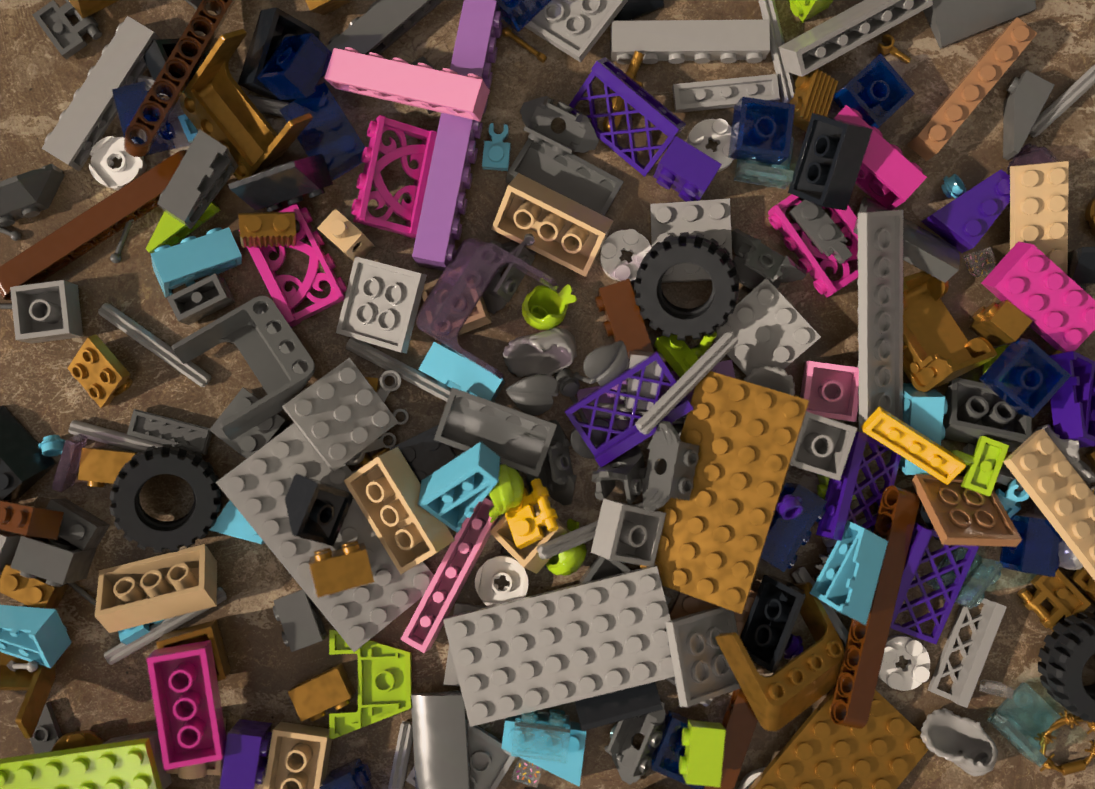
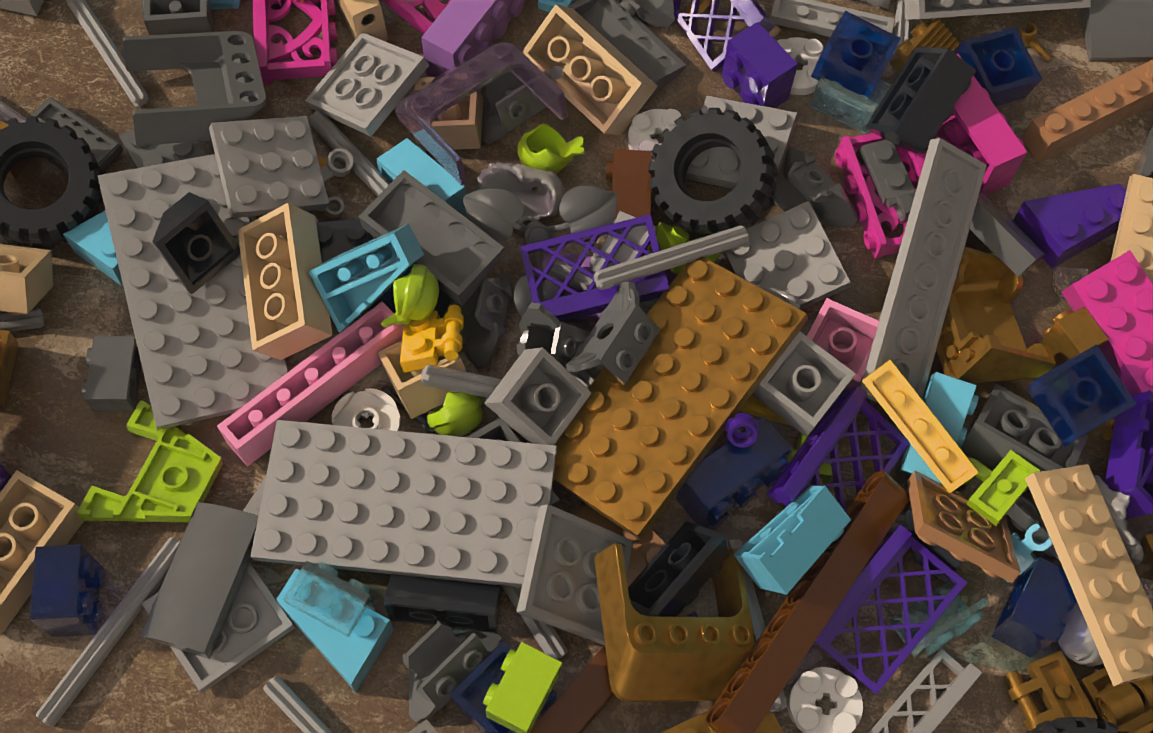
camera: 20 degrees right, 20 degrees down
(99, 371) = (35, 49): pearl gold plate -> none
(321, 693) = (95, 462): pearl gold brick -> none
(340, 568) = (187, 308): pearl gold brick -> none
(526, 773) = (296, 656): clear tile -> none
(953, 186) = (1059, 187): medium azure plate -> none

